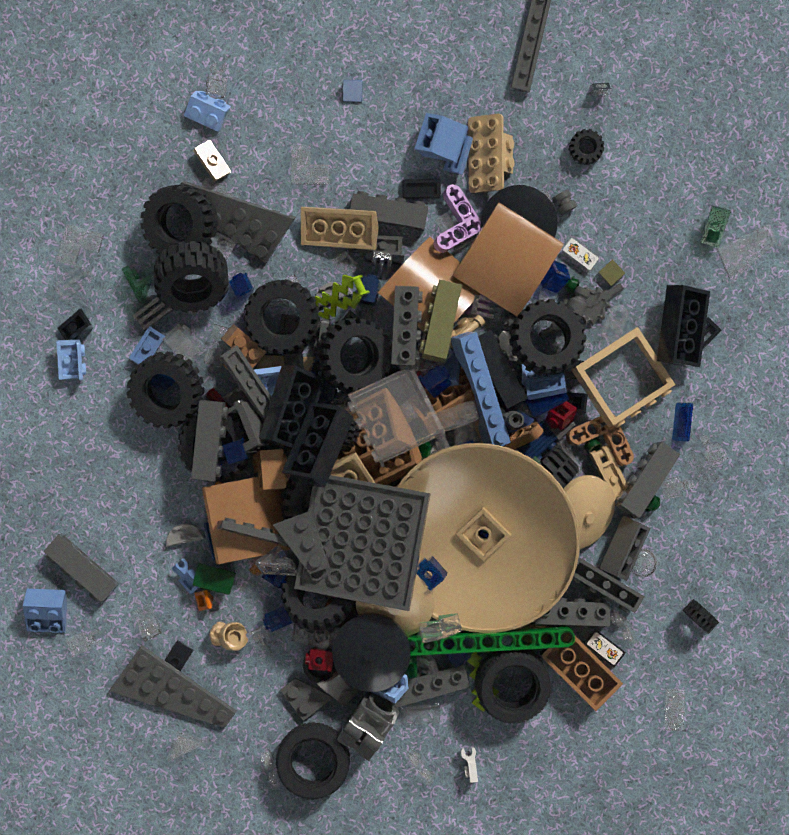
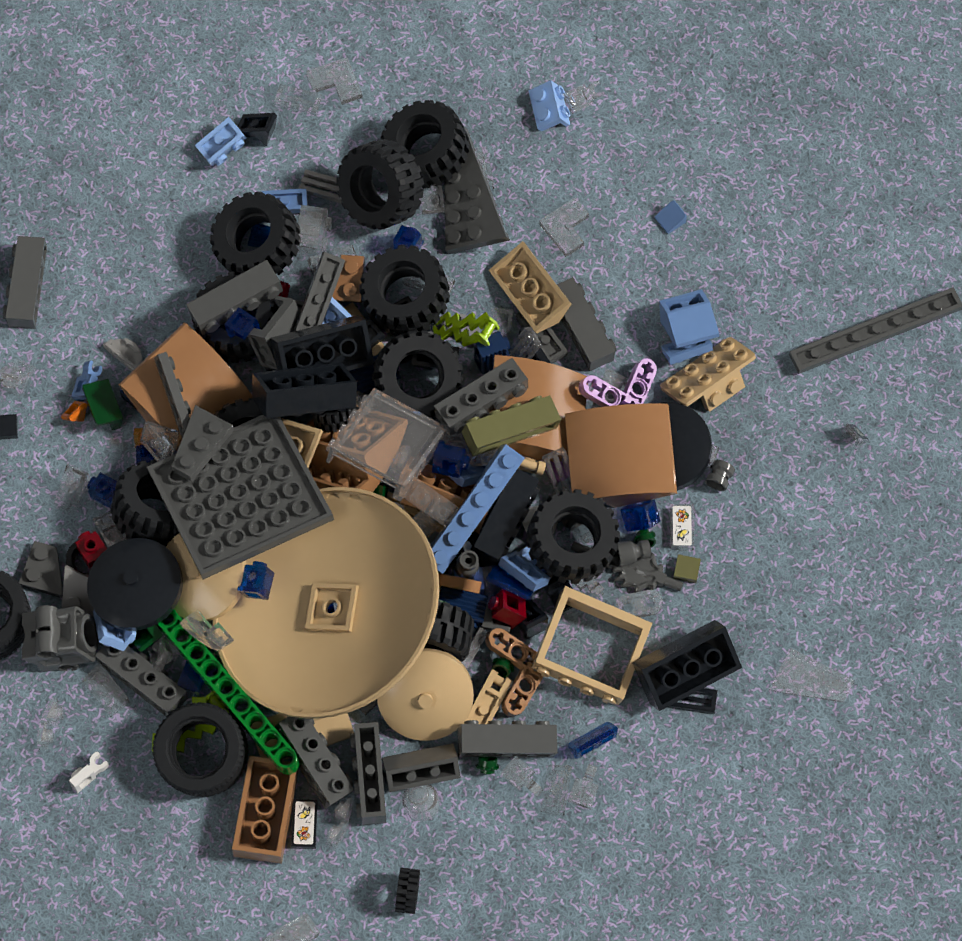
camera: 50 degrees right, 20 degrees down
(140, 287) = (336, 152): clear green slope -> none
(212, 160) = (505, 141): plate -> none
(229, 636) = (54, 455): tan hair -> none
(269, 467) = (239, 379): medium nougat brick -> none
(421, 188) = (627, 340): black tile -> none
(586, 158) = (784, 471): black tyre -> none
(715, 226) = (810, 629): clear green slope -> none

